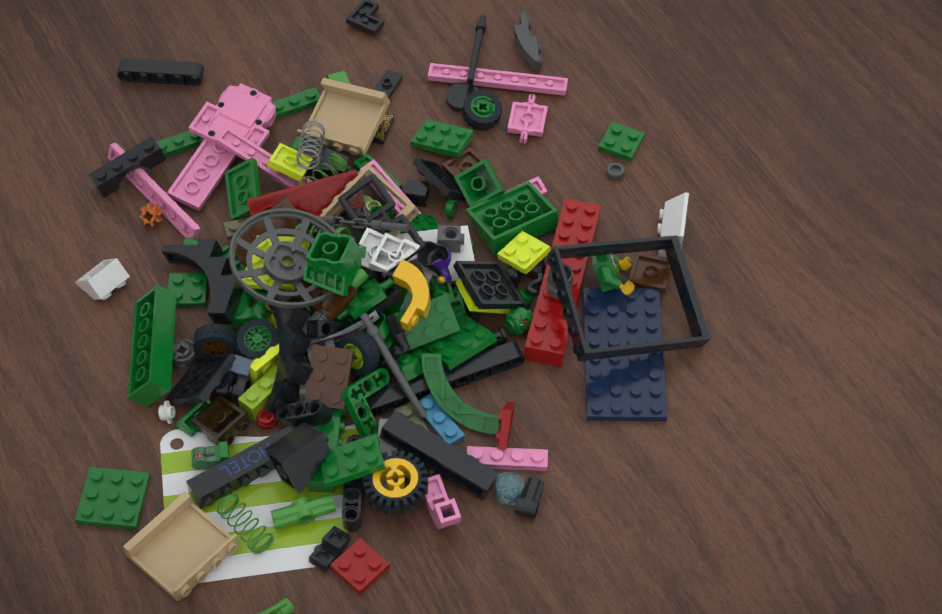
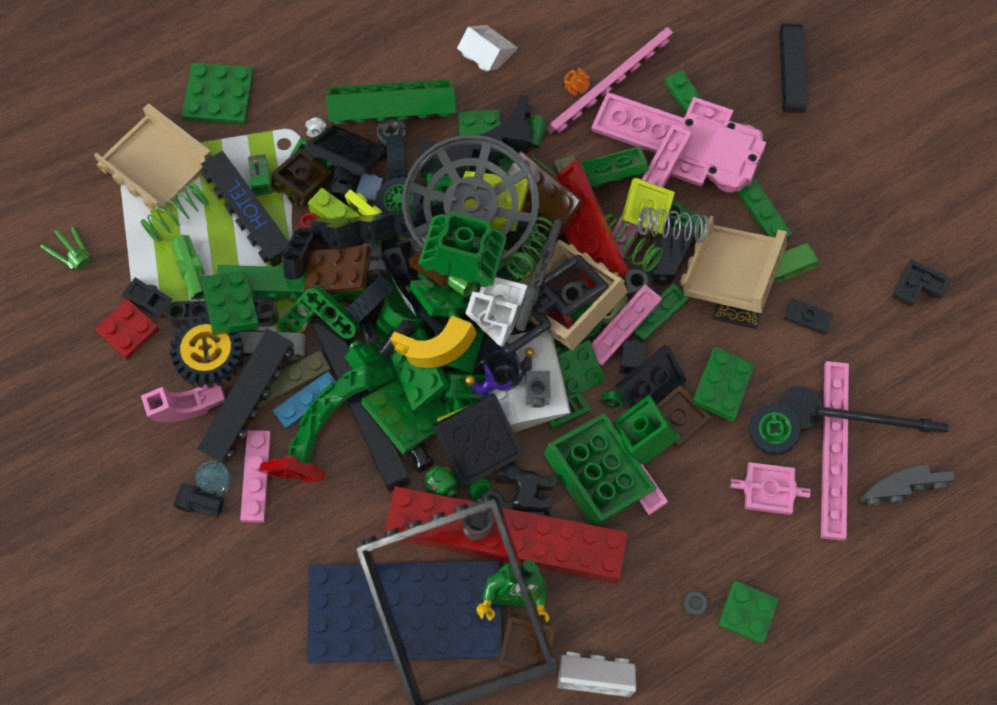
camera: 85 degrees right, 15 degrees up
(110, 175) = (652, 60): black arch -> none
(298, 455) = (239, 247): black slope -> none
(374, 332) = (384, 307): dark grey bar -> none
(524, 252) = (536, 483): neon yellow plate -> none

